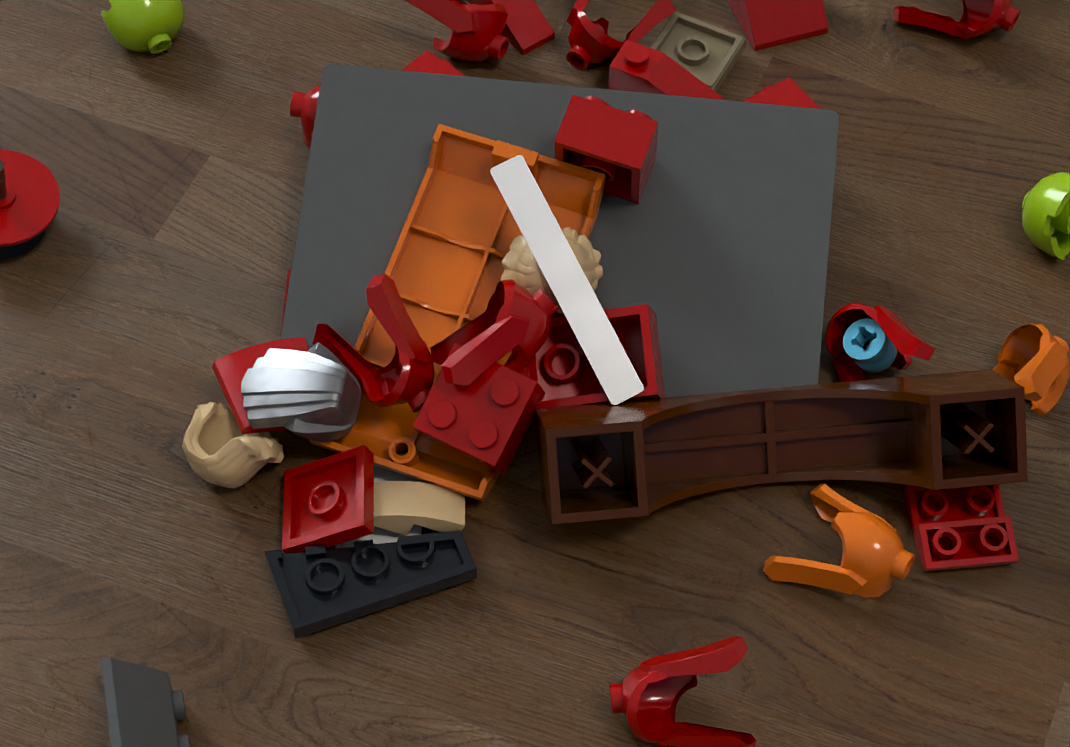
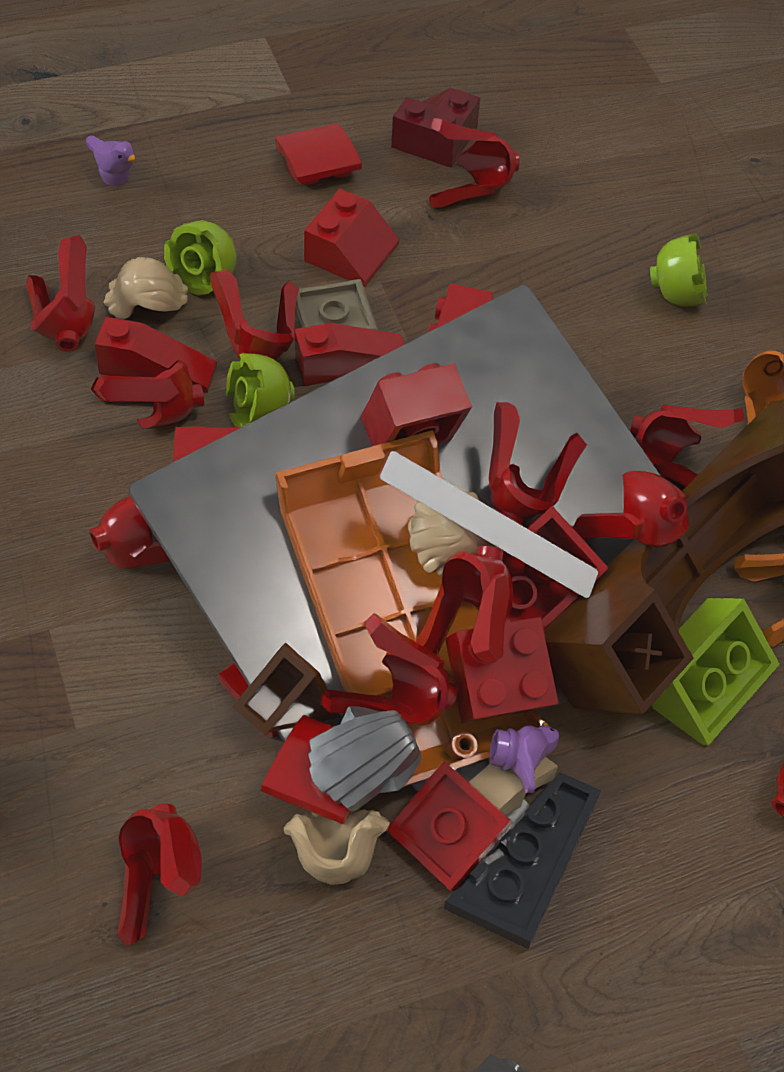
camera: 45 degrees left, 0 degrees up
(105, 352) = (151, 845): none -> red piece
(295, 303) = (284, 693): none -> reddish brown slope
(438, 485) = (523, 751): none -> medium lavender animal
(557, 63) = (257, 388): none -> lime cylinder
(647, 280) = (507, 490): none -> red piece
(686, 553) = (726, 668): none -> lime slope
(742, 369) = (651, 513): none -> red piece
(879, 352) = (679, 444): medium azure wheel -> none

